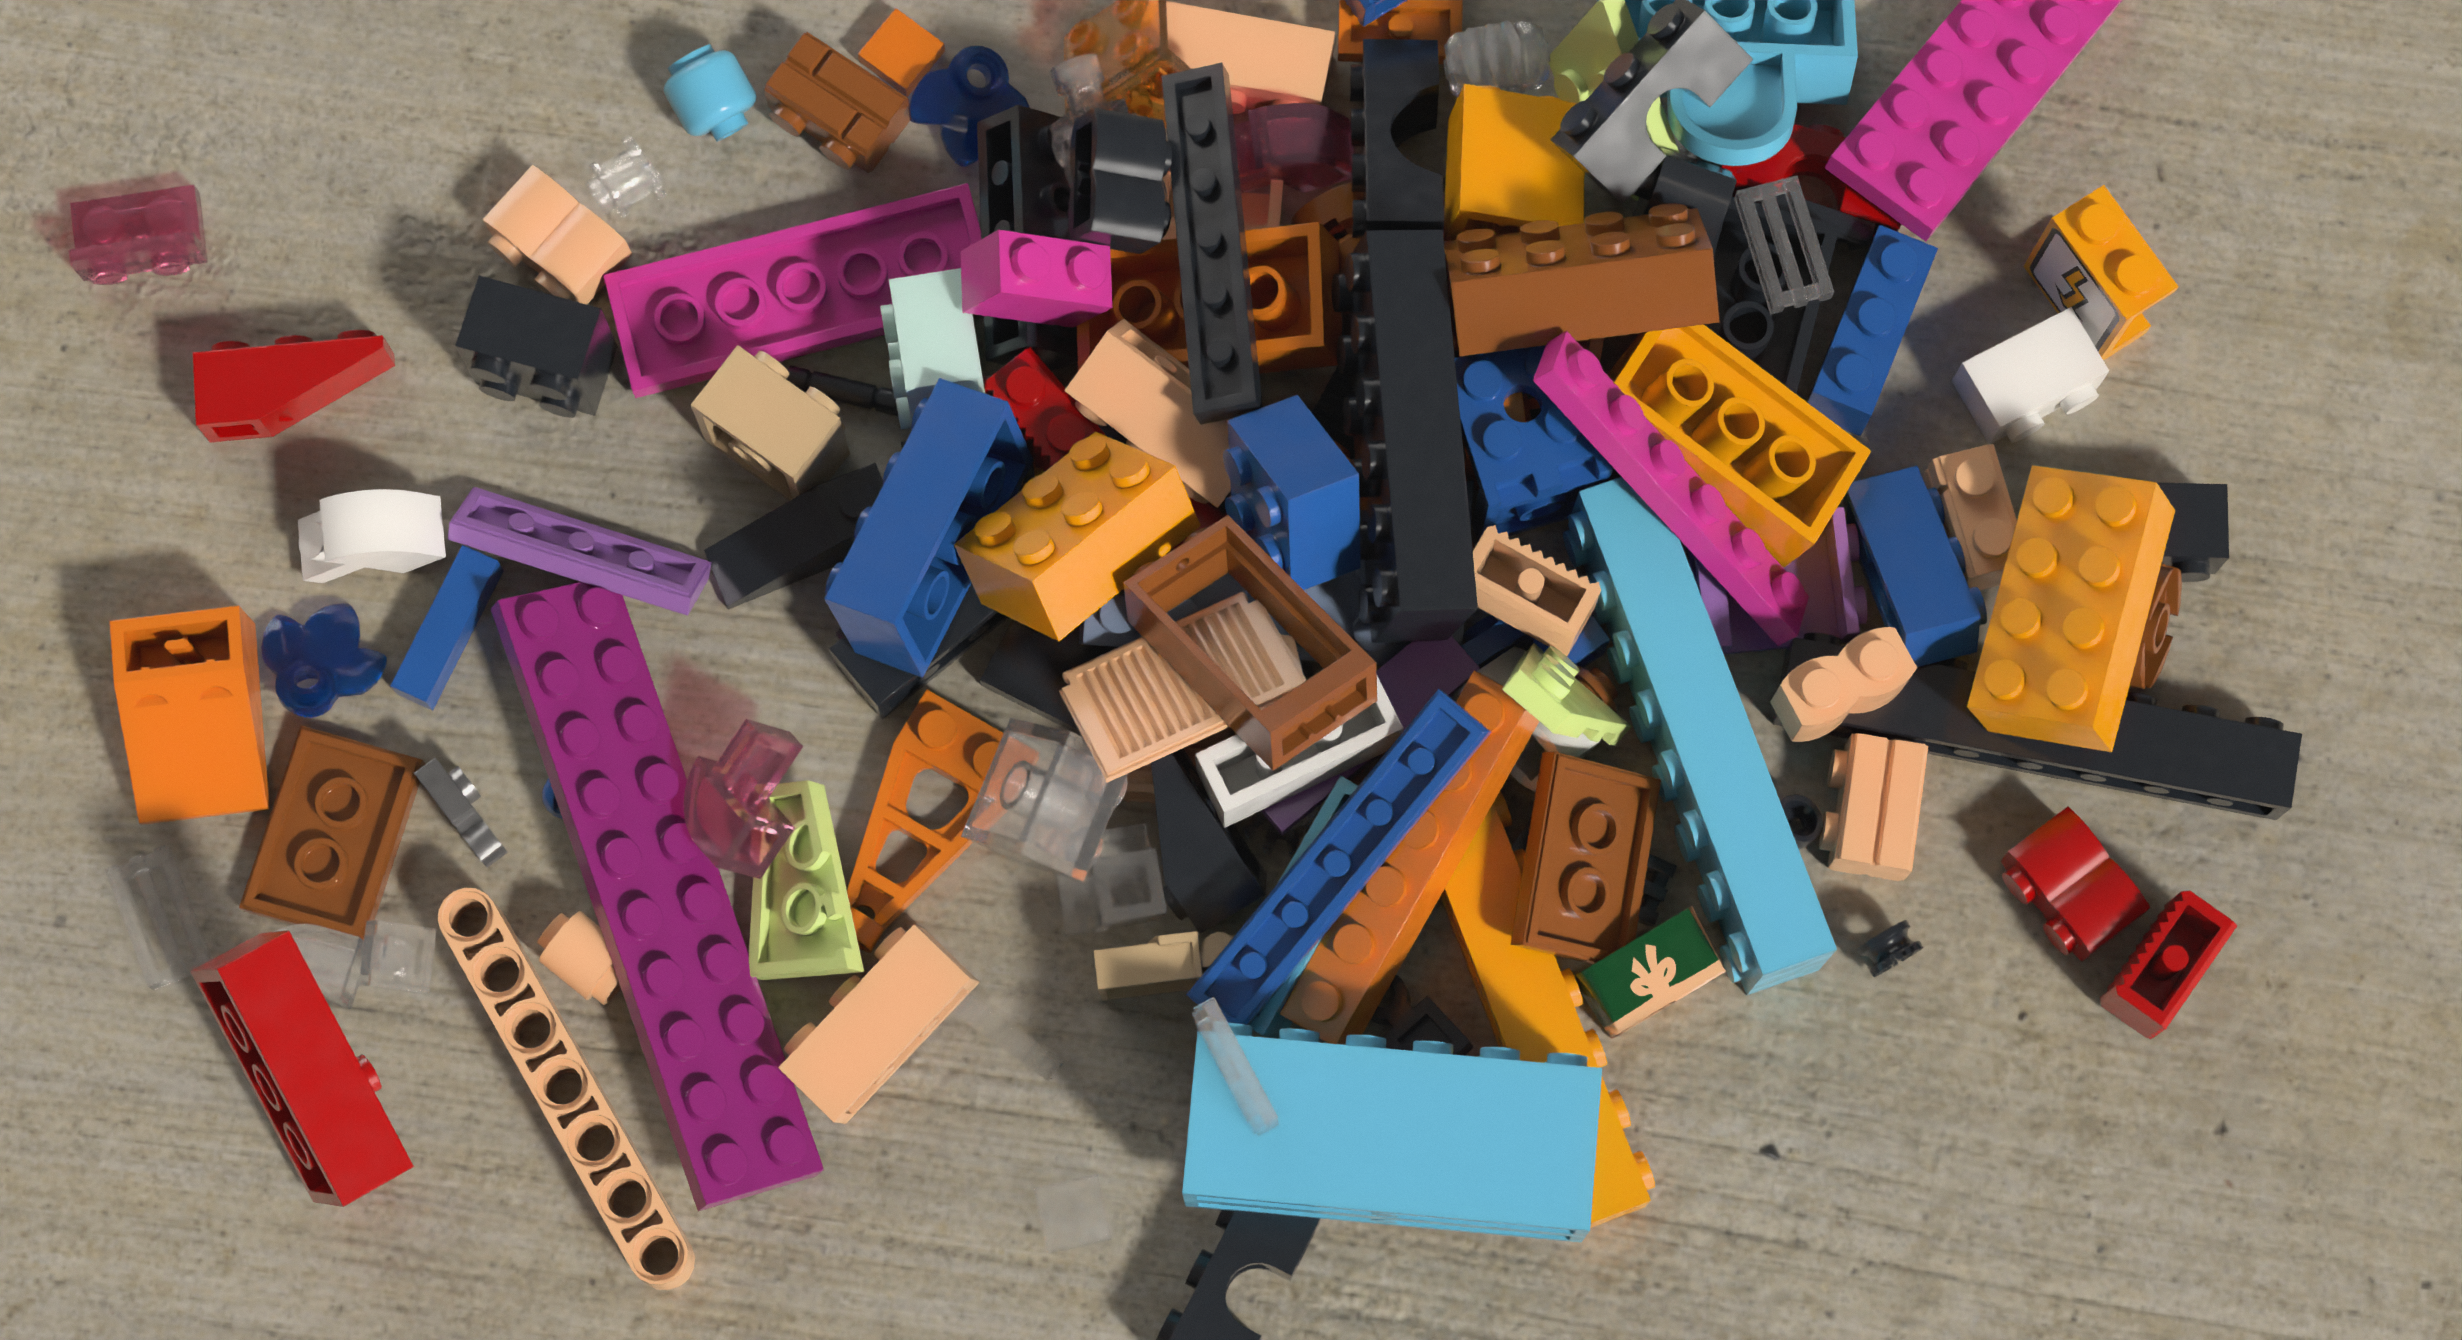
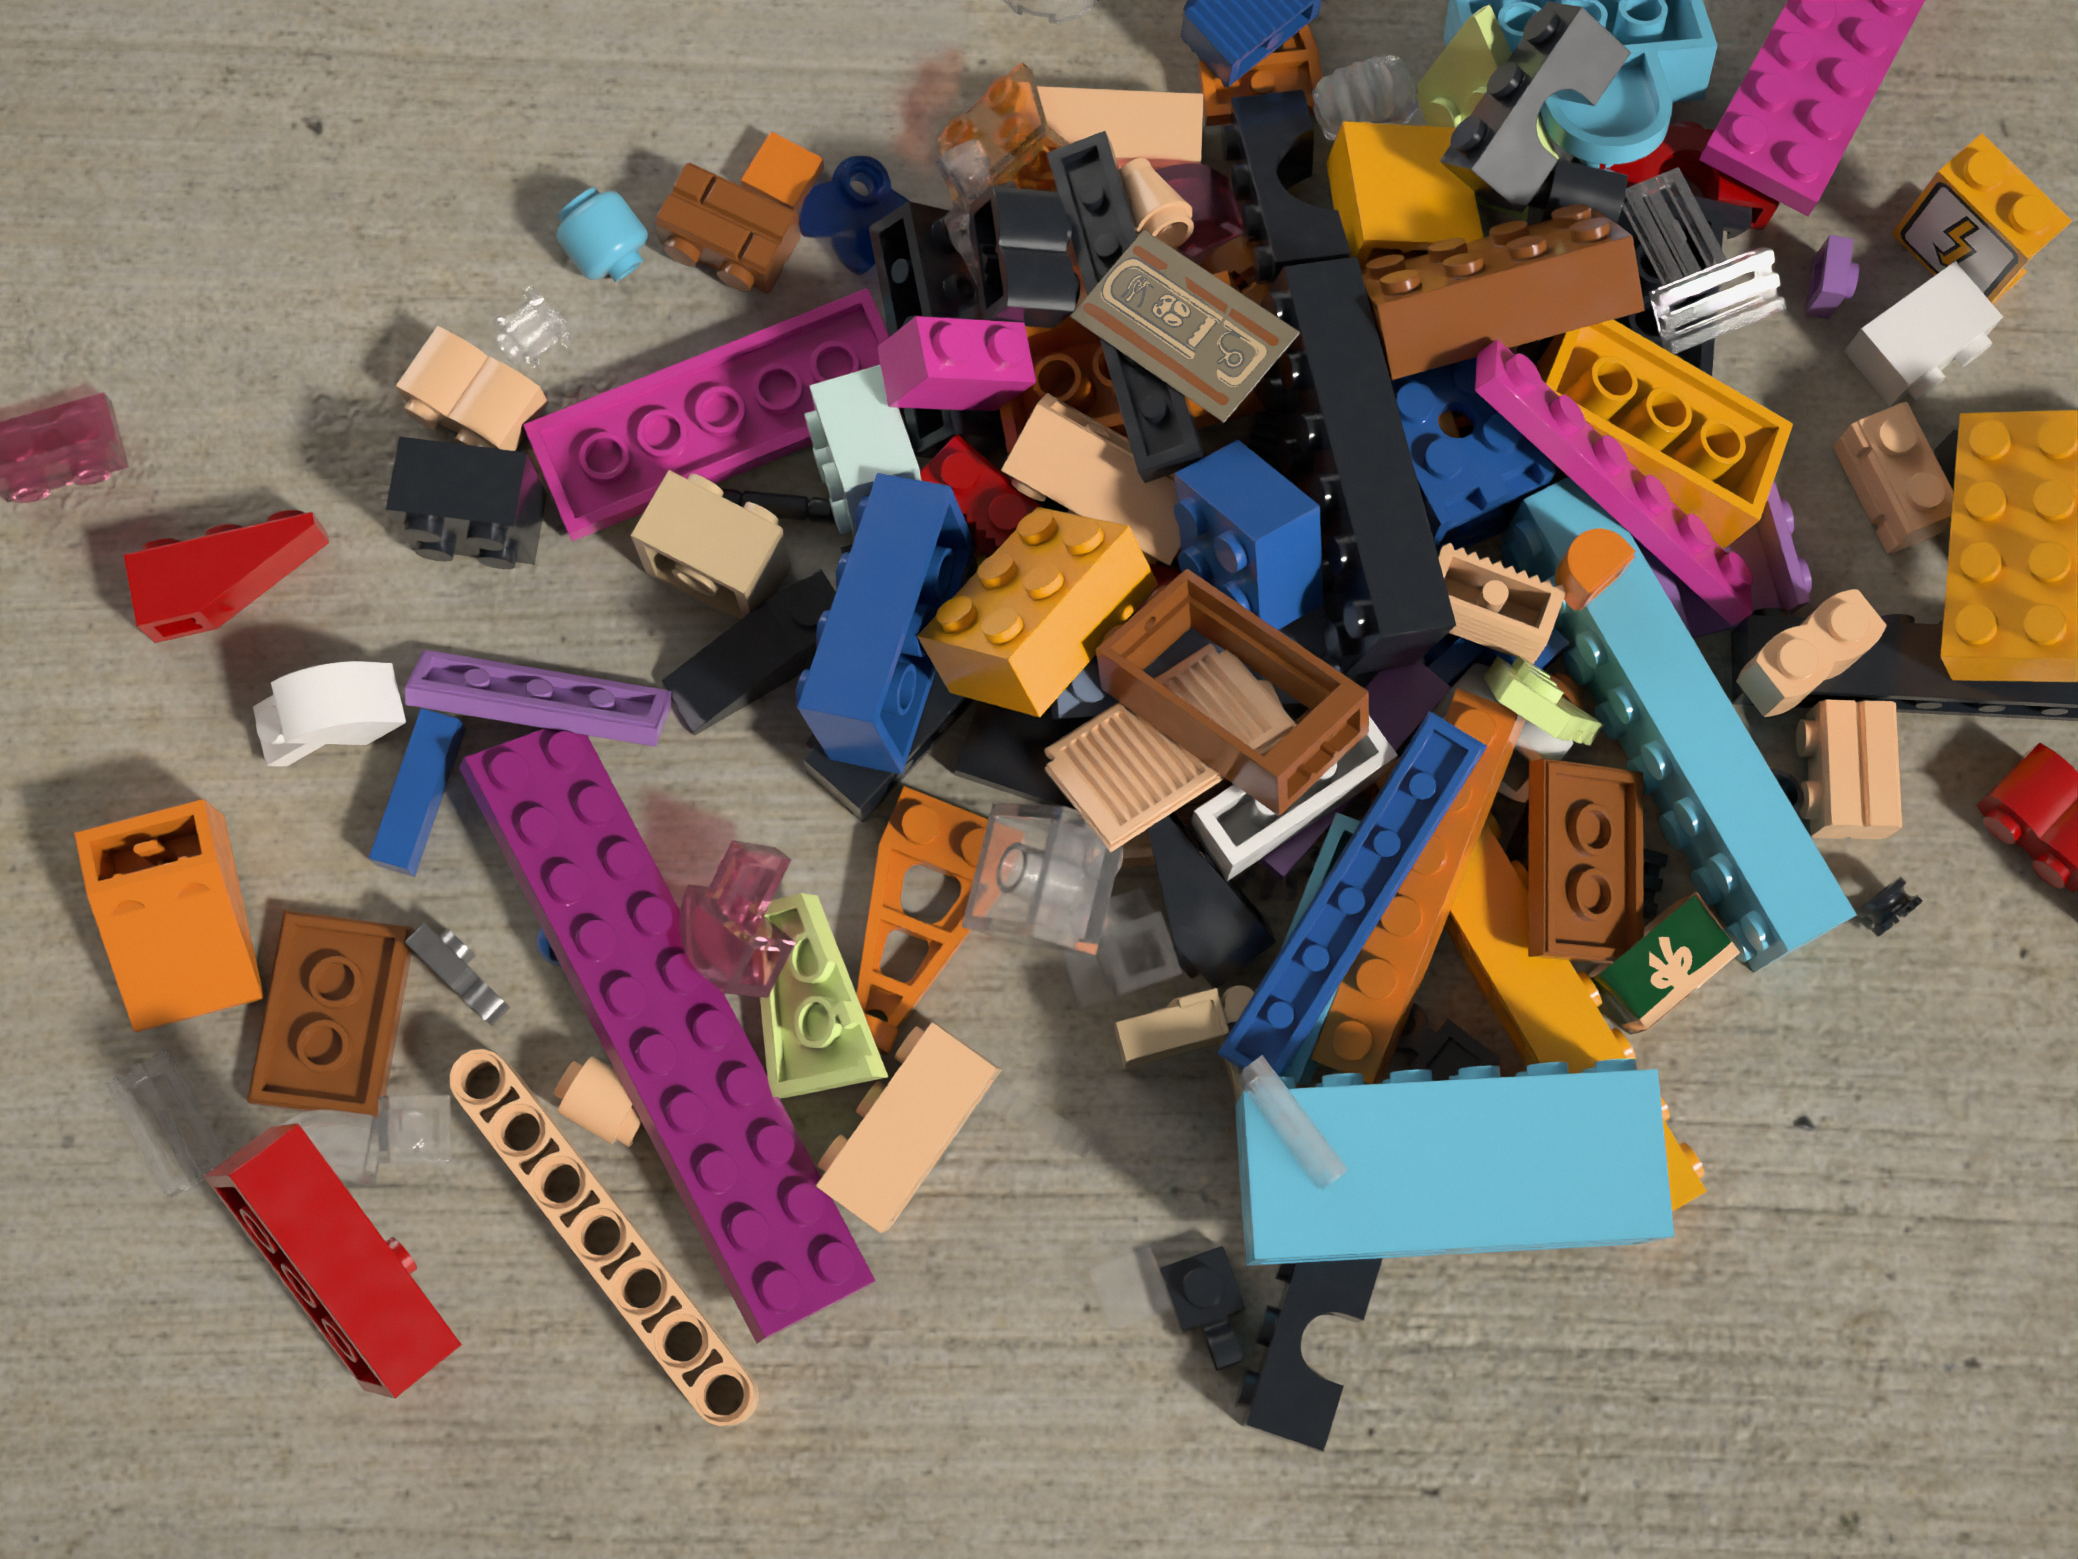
camera: 10 degrees left, 0 degrees up
(323, 651) = (294, 832): clear blue plate -> none
(1143, 1233) = (1204, 1297): none -> black plate
(1262, 273) = (1184, 325): none -> sticker
(1263, 150) = (1156, 204): none -> light nougat cone
(1630, 568) = (1592, 565): none -> orange brick
(1863, 305) = (1763, 284): none -> clear tile
(1871, 329) = (1760, 354): blue brick -> none
(1914, 566) = (1853, 530): blue brick -> none
(1949, 304) = (1831, 277): none -> medium lavender plate

